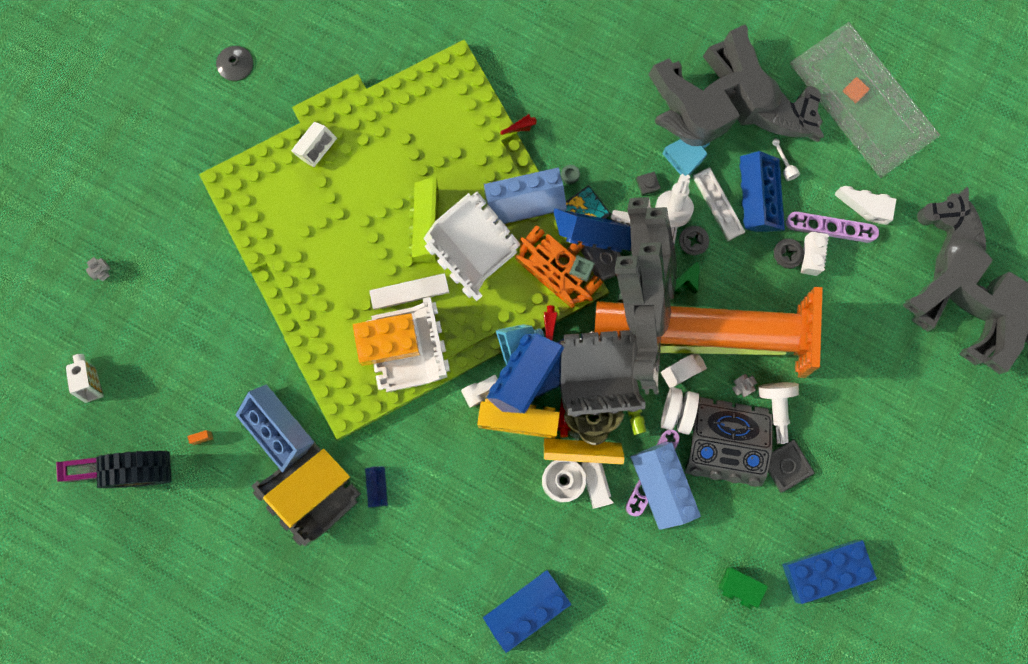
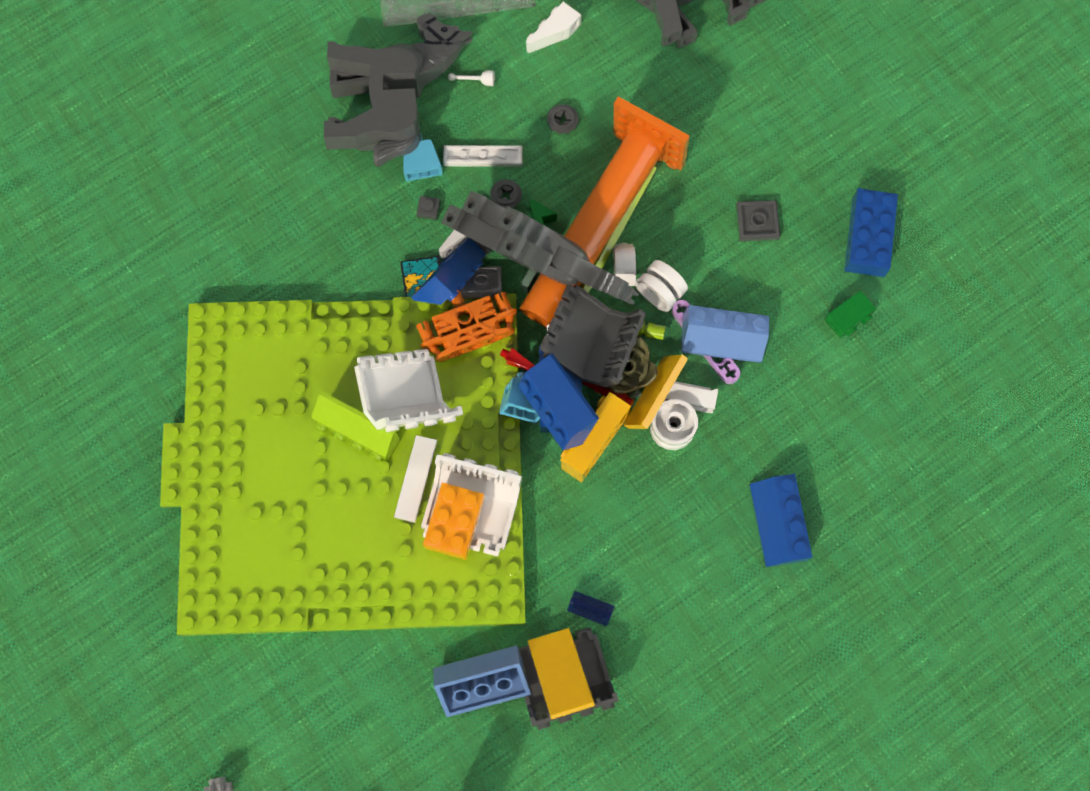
camera: 60 degrees left, 5 degrees down
(200, 437) = (452, 763): orange tile -> none
(240, 68) = (86, 544): dark grey dish -> none
(314, 144) = (213, 499): white brick -> none
(478, 392) = (548, 465): white piece -> none
(522, 125) = (307, 293): red piece -> none
(526, 196) = (382, 318): medium blue slope -> none
(570, 174) = (380, 274): sand green tile -> none
(581, 268) = (482, 302): sand green tile -> none
(677, 202) = (460, 185): white piece -> none
(731, 442) = (714, 256): dark grey hinge -> none
(744, 385) = (666, 218): light grey gear -> none
(762, 192) = (493, 112): blue slope -> none
(779, 393) = (690, 192): white piece -> none
(814, 253) = (575, 95): white brick -> none
(841, 225) = (555, 78): lavender beam -> none

